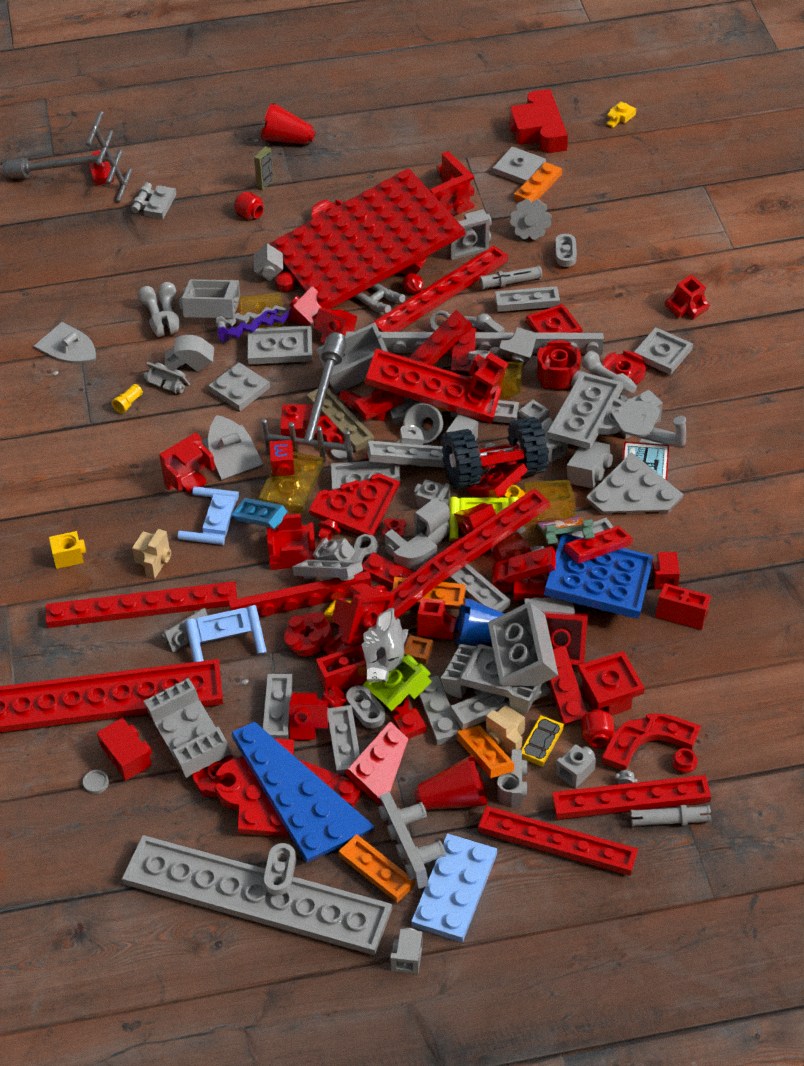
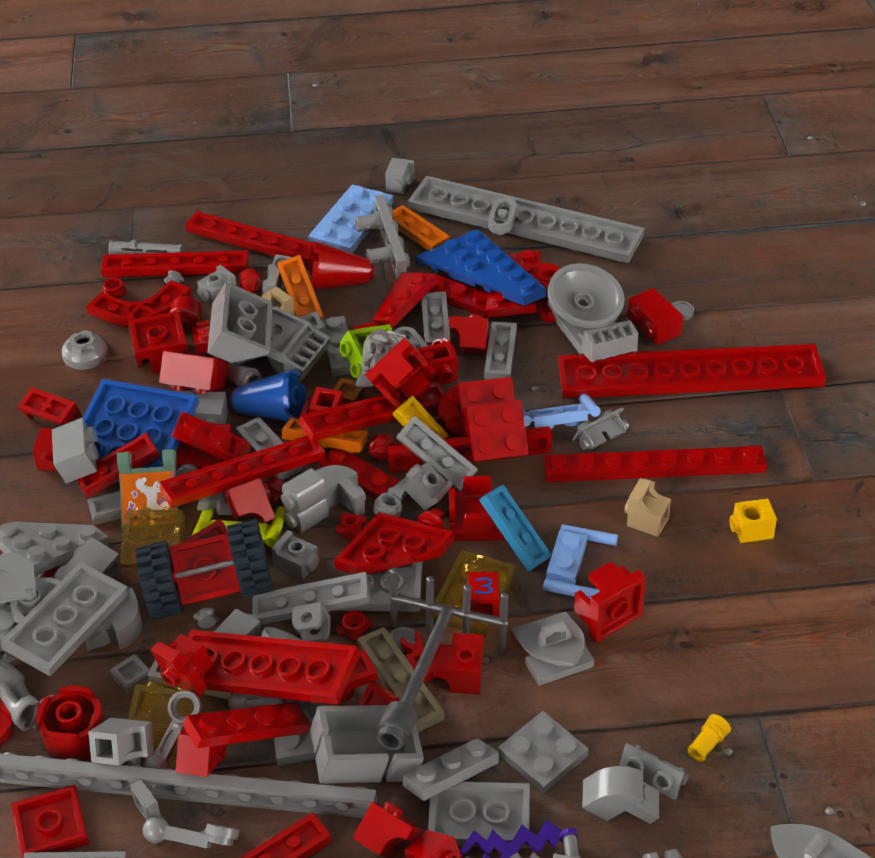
camera: 175 degrees left, 5 degrees down
(191, 715) = (586, 295): none -> light grey dish
(280, 599) = (492, 419): none -> red bracket
(297, 361) = (450, 769): none -> light grey plate
(544, 777) = (250, 280): none -> red plate
(636, 542) = (74, 450): none -> light grey brick
(682, 694) = (87, 354): none -> light grey piece

